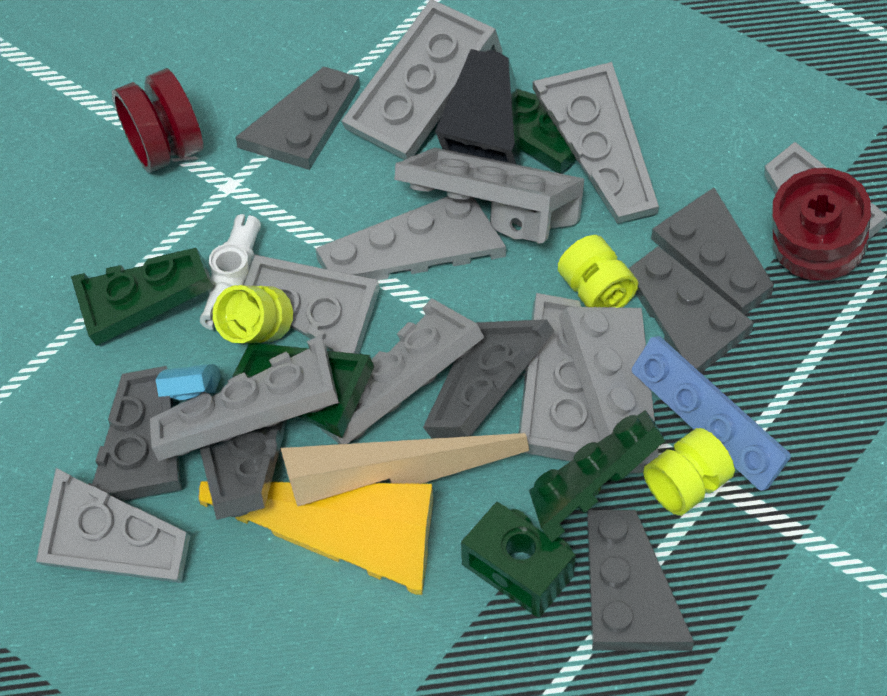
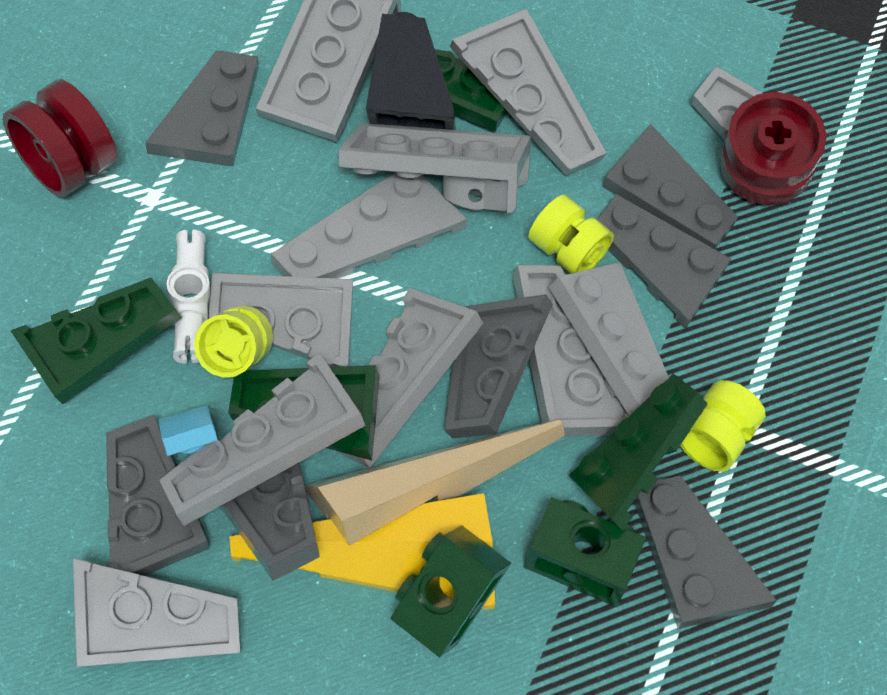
camera: 25 degrees left, 5 degrees up
(398, 551) = (474, 574): none -> dark green brick
(706, 407) = (725, 358): medium blue bracket -> none

